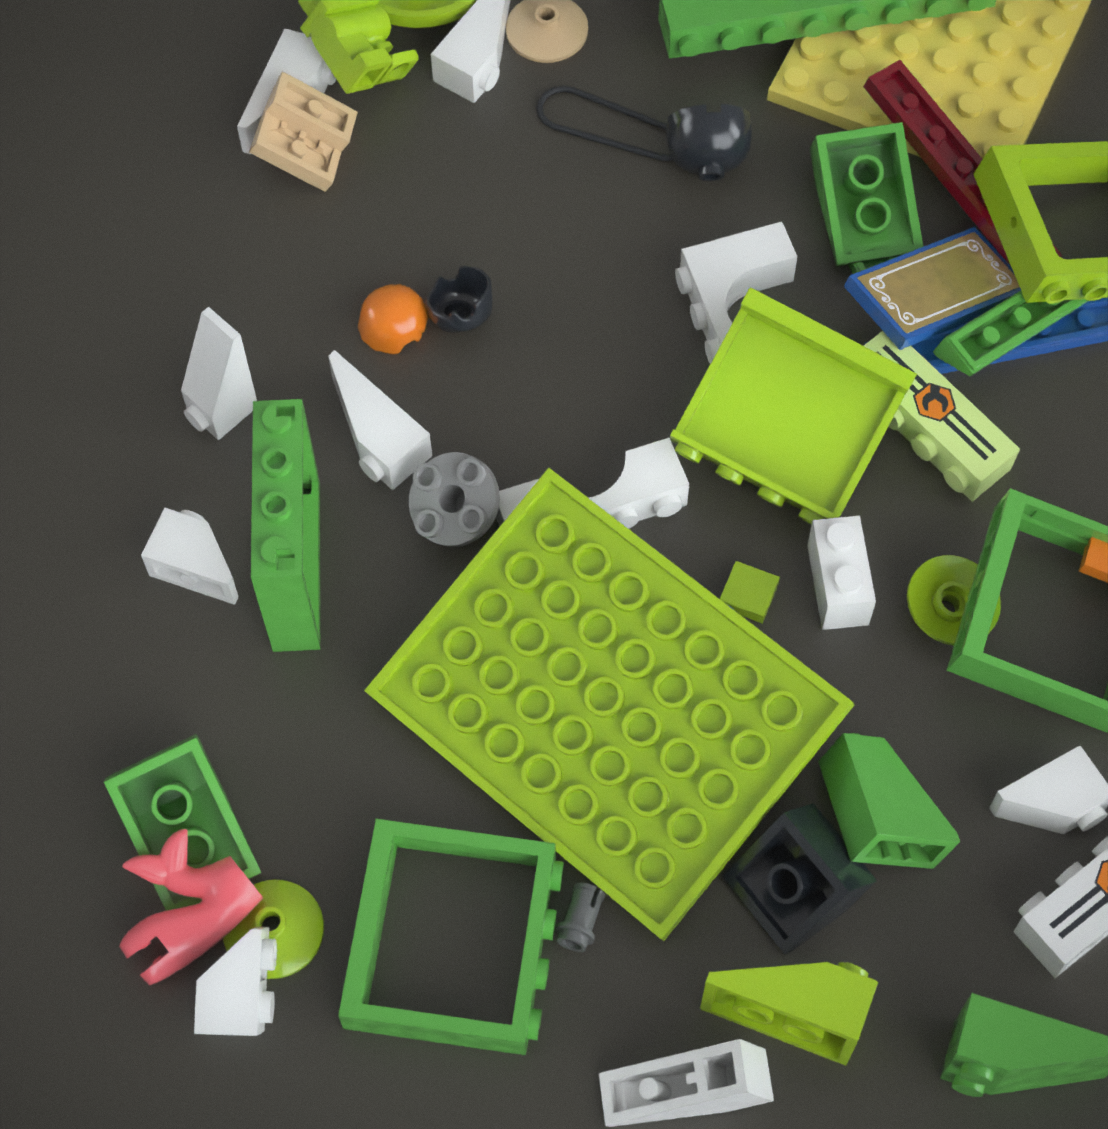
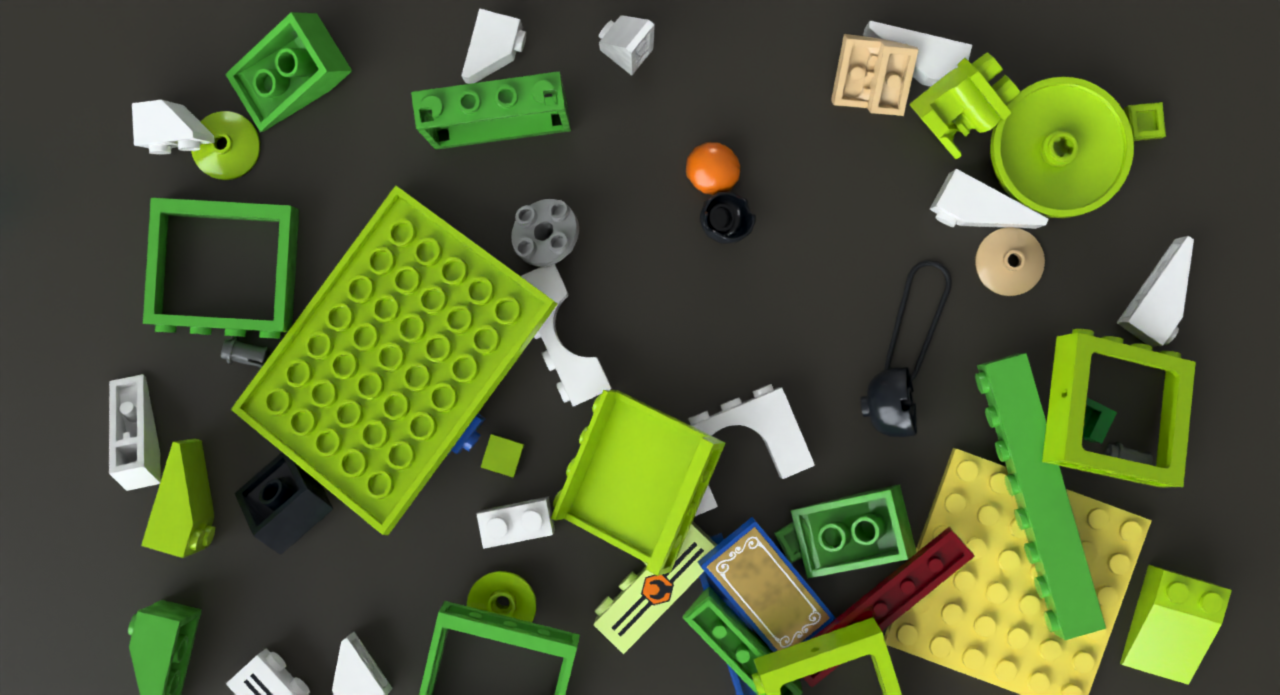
camera: 80 degrees right, 25 degrees up
(192, 929) = (232, 110): coral piece -> none
(383, 433) = (608, 169): white slope -> none
(883, 806) = (333, 557): bright green slope -> none

